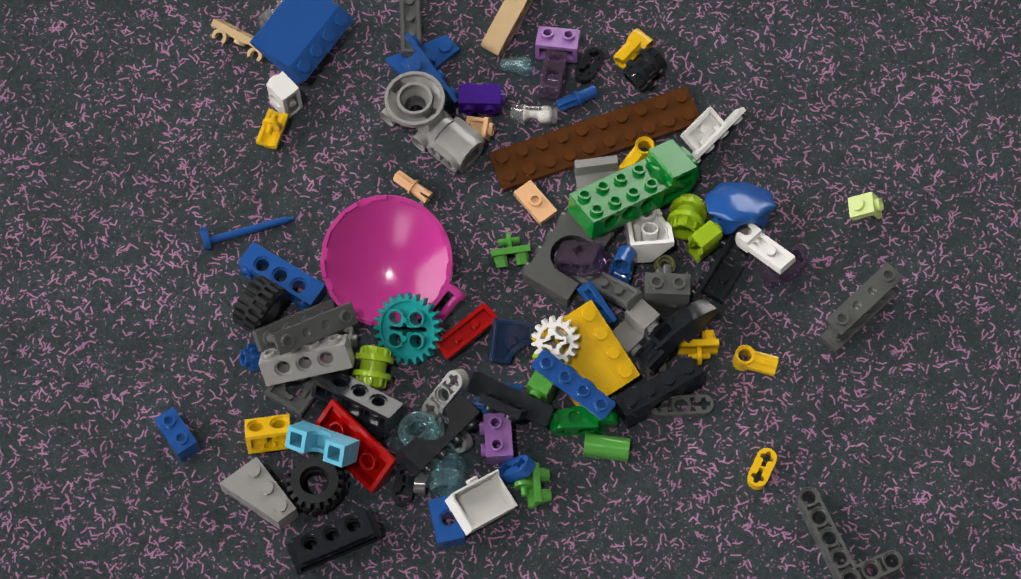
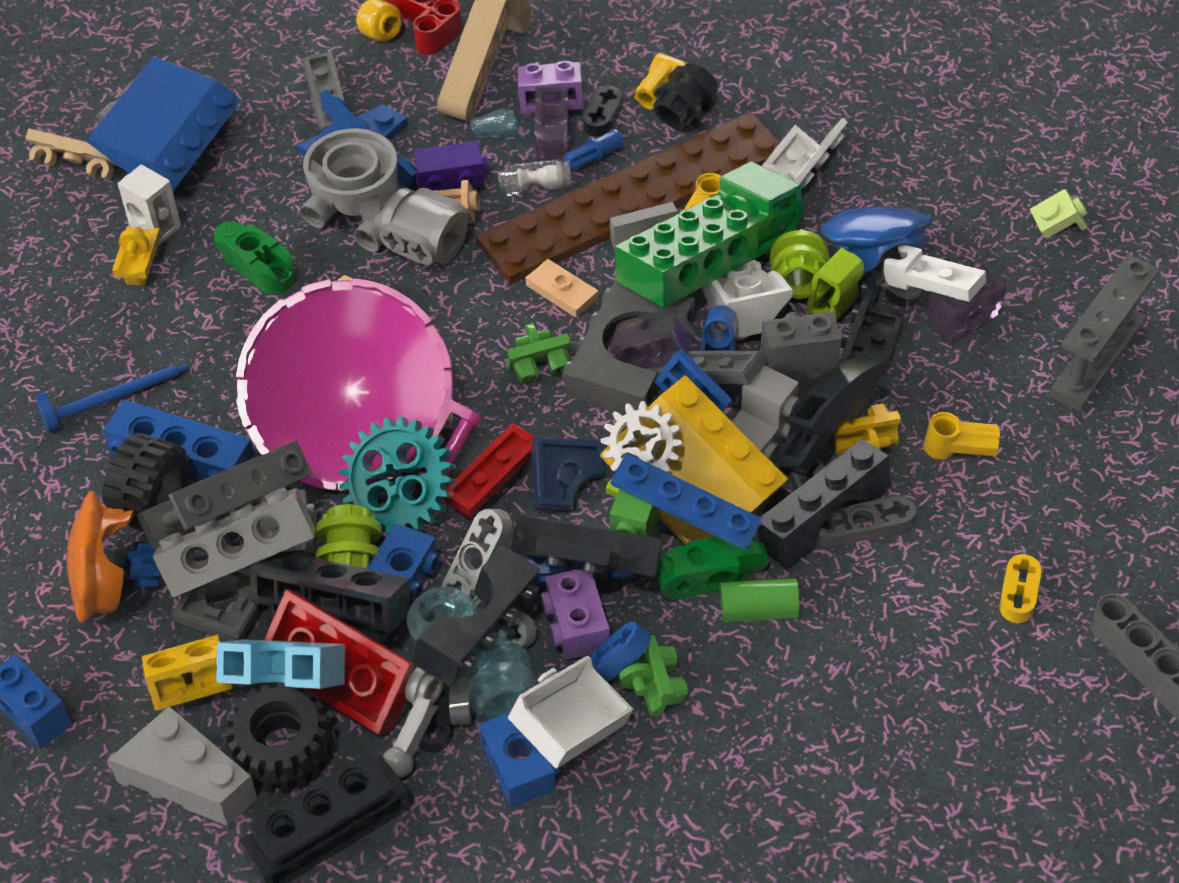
camera: 10 degrees left, 15 degrees down
(220, 360) = (93, 578): none -> orange piece
(337, 130) = (256, 256): none -> green piece
(399, 475) = (422, 692): none -> light grey piece
(404, 376) = (407, 551): none -> blue brick

